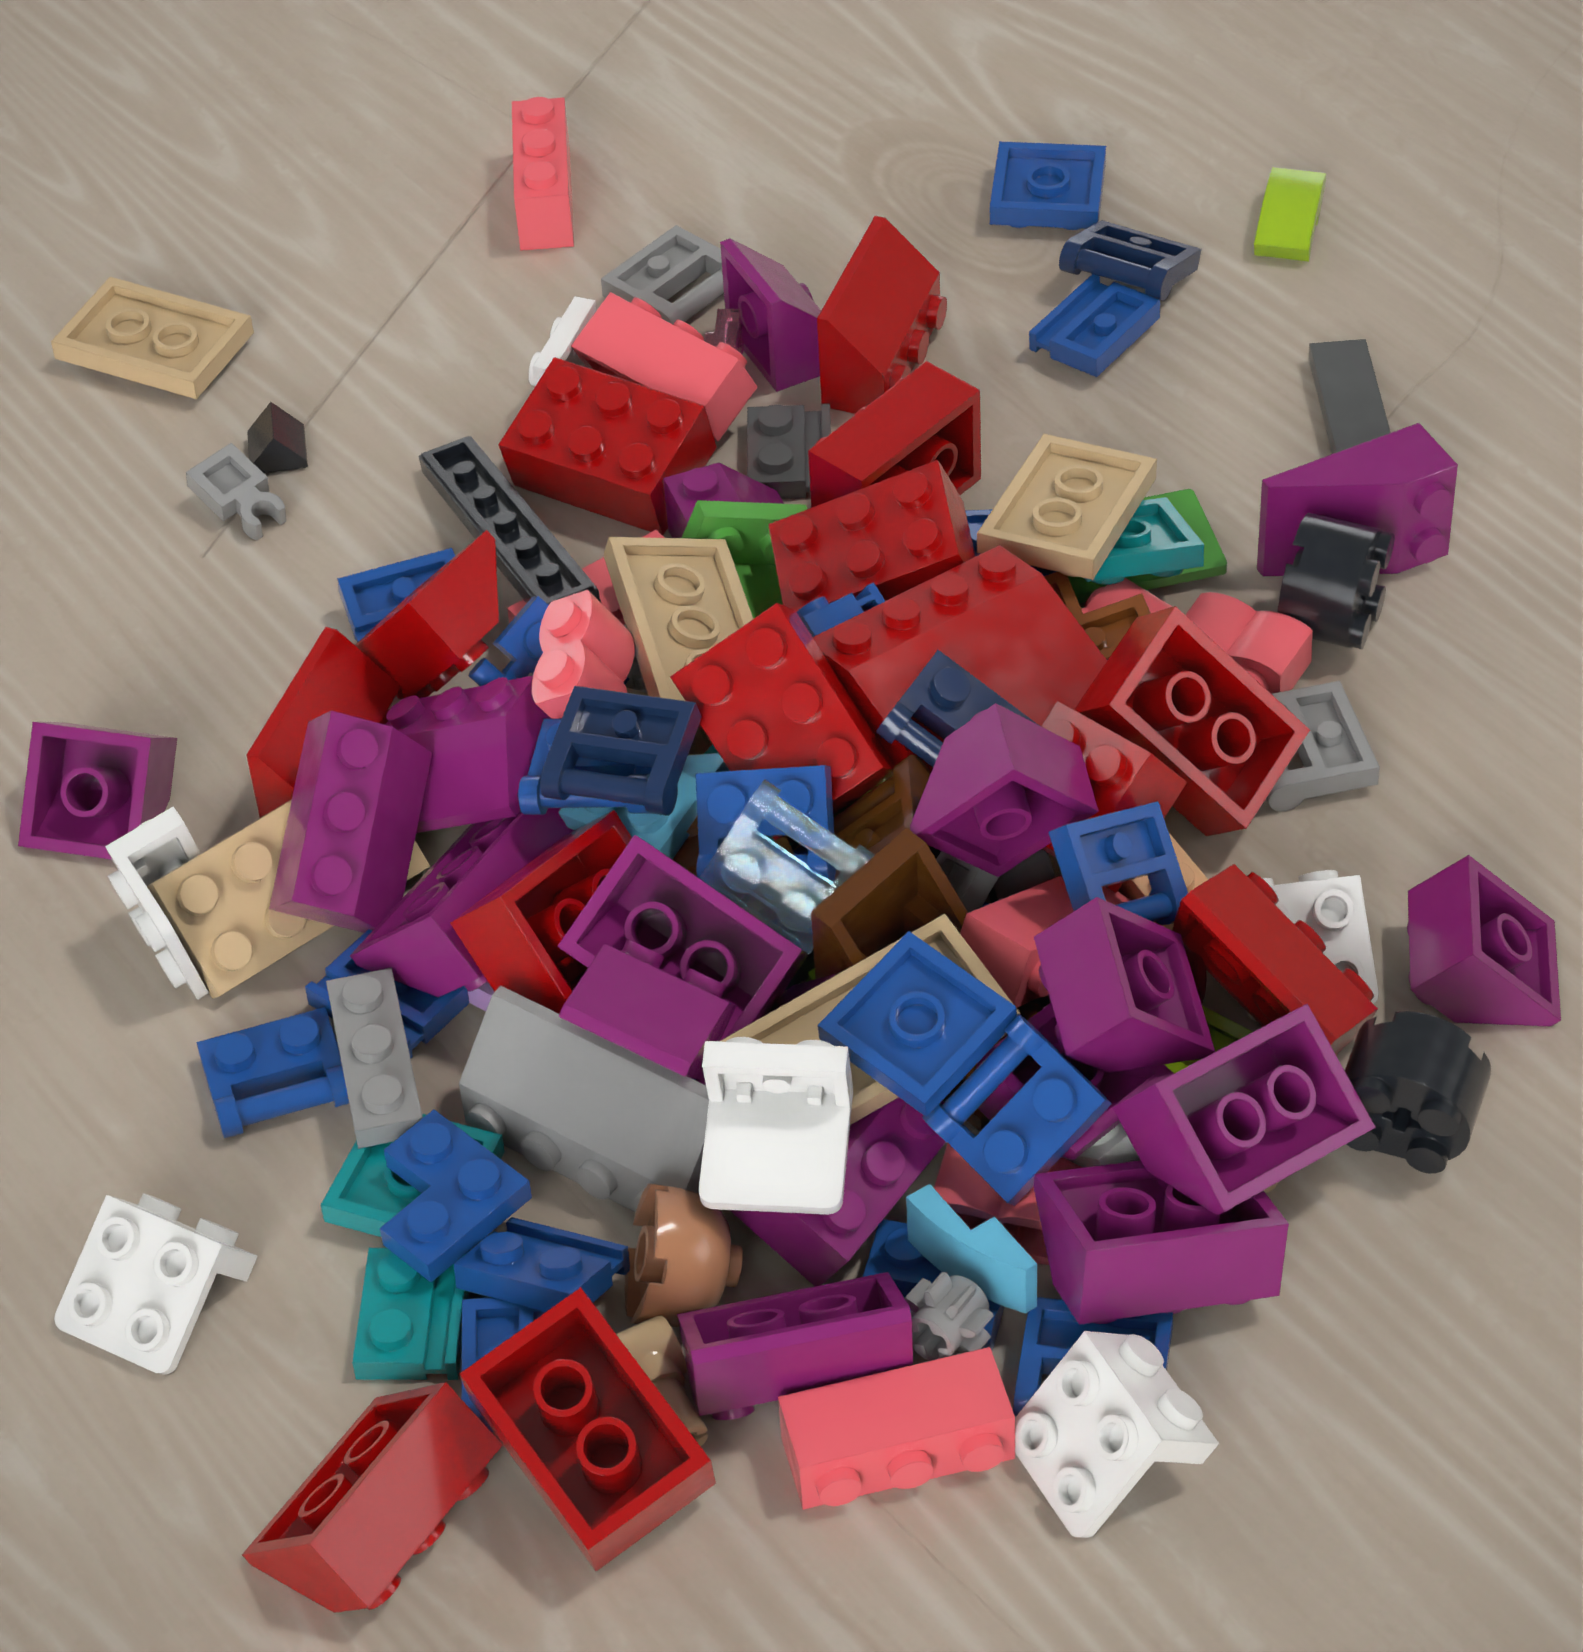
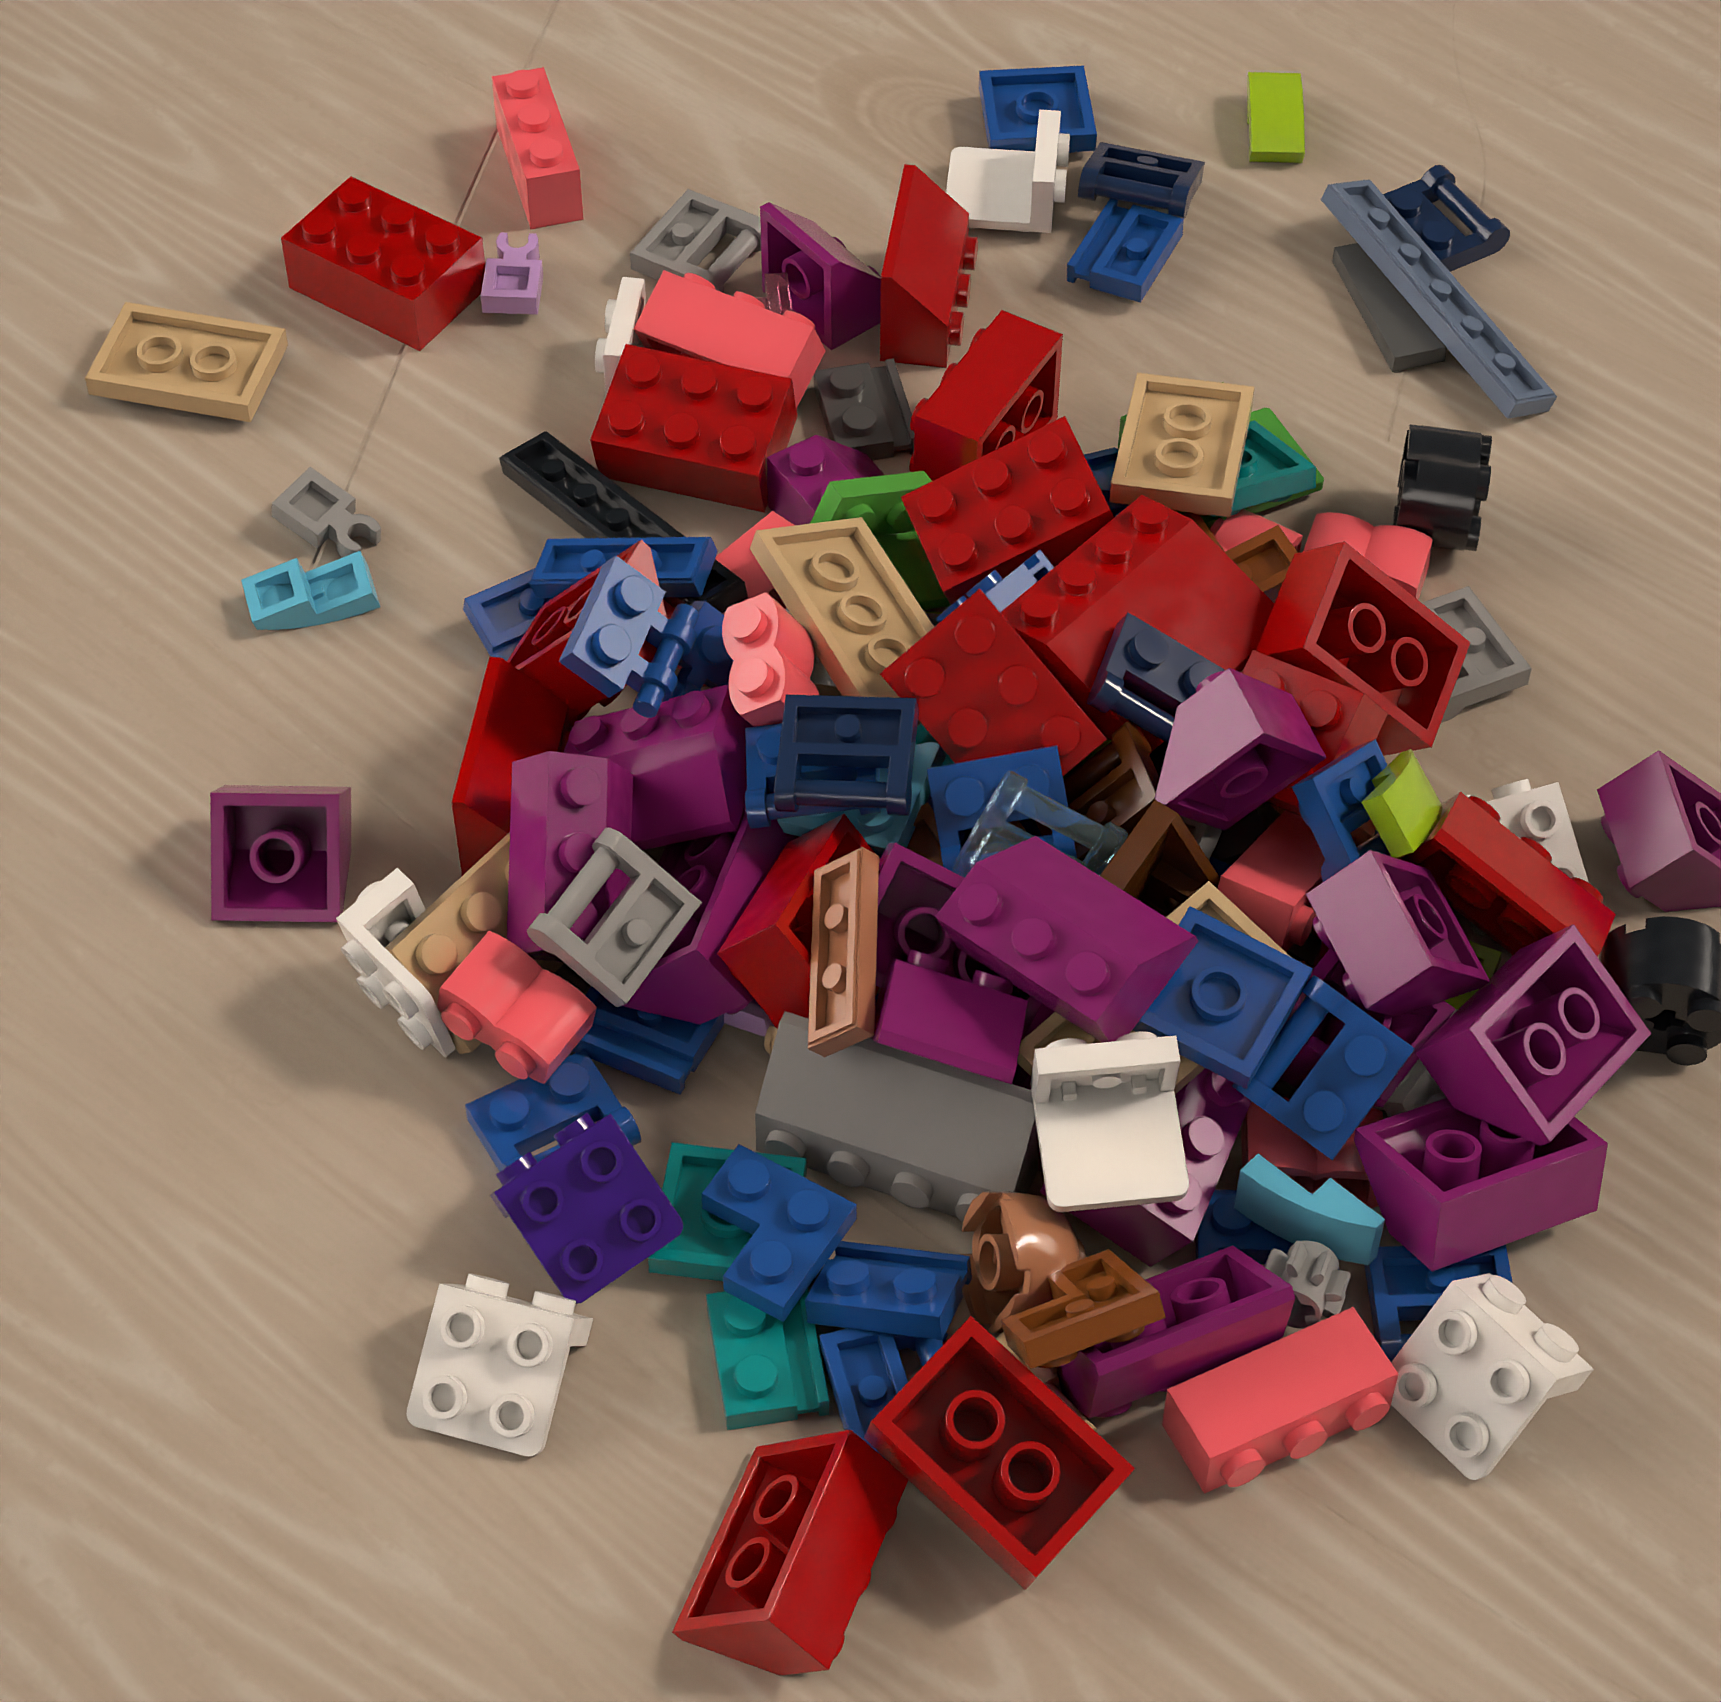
camera: 15 degrees left, 5 degrees up
(188, 564) = (297, 599): none -> medium azure slope
(258, 955) = (515, 1008): none -> coral brick
(270, 1147) = (587, 1207): none -> dark purple bracket
(277, 441) = (348, 457): black slope -> none
(364, 265) = (384, 262): none -> red brick
(374, 1056) = (659, 1097): light grey plate -> none
(379, 893) = (632, 930): none -> light grey plate
(433, 608) = (612, 630): none -> blue plate
(483, 295) = (514, 279): none -> lavender plate
(522, 563) = (679, 562): none -> blue tile
(562, 933) = (843, 952): none -> nougat tile
(718, 1297) = (1089, 1305): none -> dark orange plate
(773, 940) = (1065, 936): none -> magenta slope
(1000, 254) = (1012, 186): none -> white bracket
(1167, 866) = (1403, 805): none -> lime slope
(1387, 483) = (1468, 386): magenta slope -> none
(1391, 382) = (1439, 299): none -> sand blue tile
(1413, 343) = (1444, 239): none -> dark blue plate

